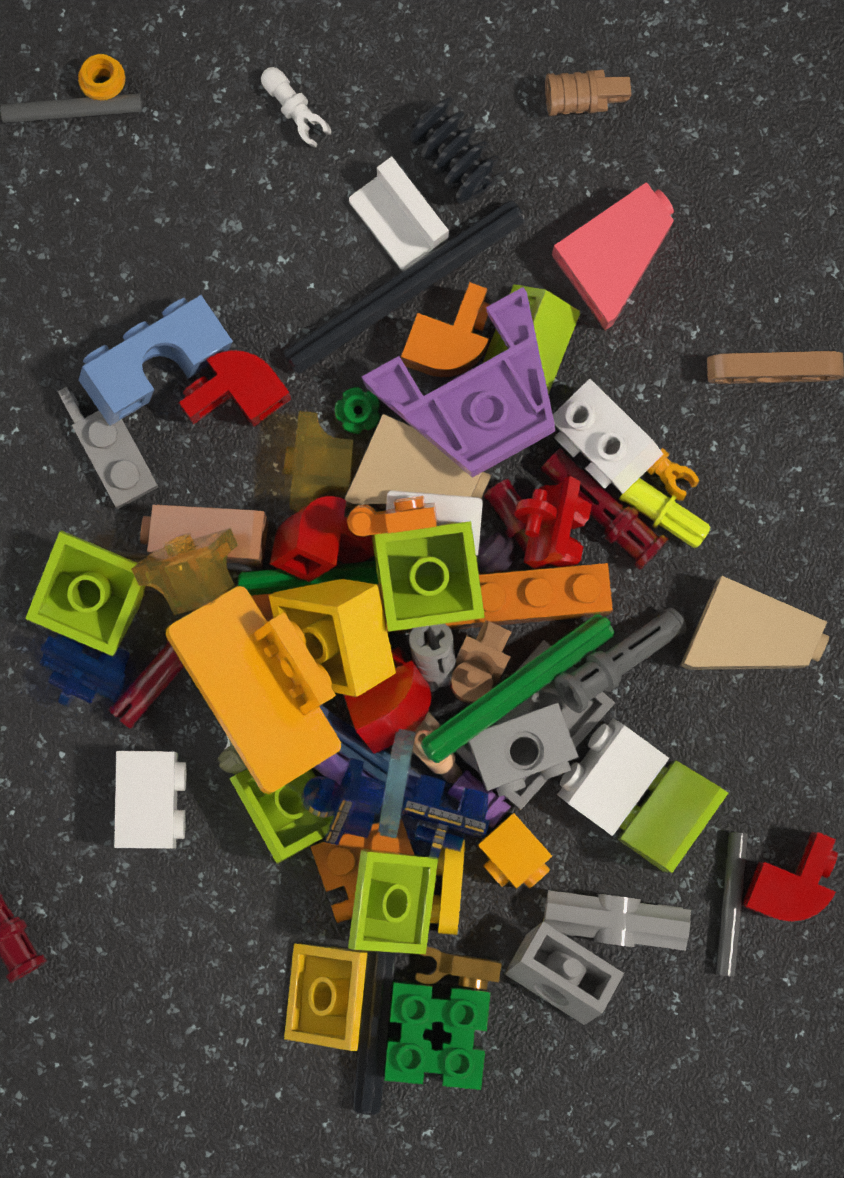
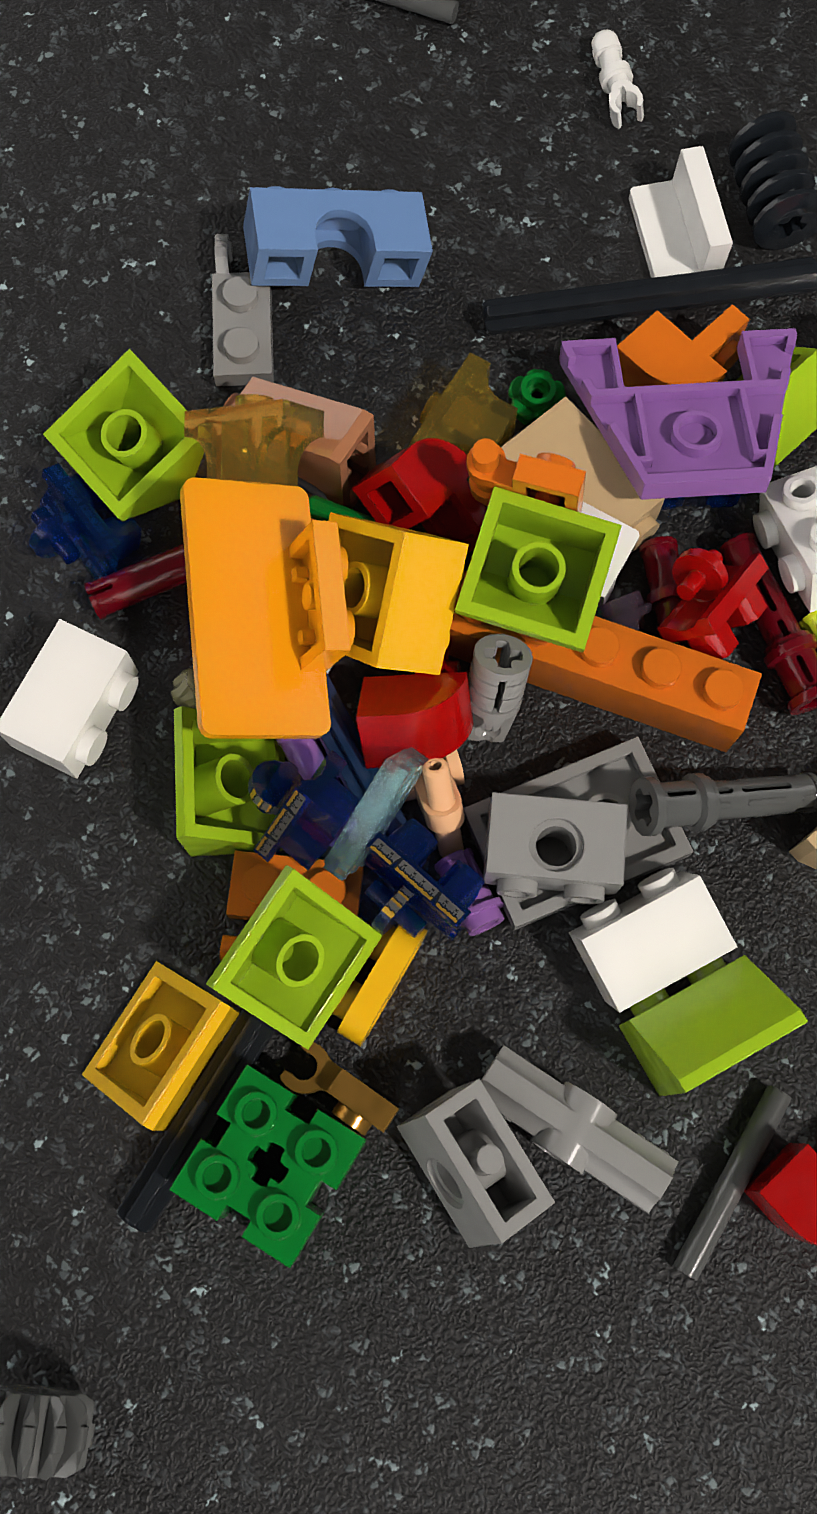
camera: 30 degrees right, 10 degrees down
(238, 376) = (419, 302): red brick -> none
(480, 663) = (550, 720): medium nougat hips -> none
(514, 854) = (482, 978): light orange brick -> none
(517, 688) = (576, 768): green axle -> none

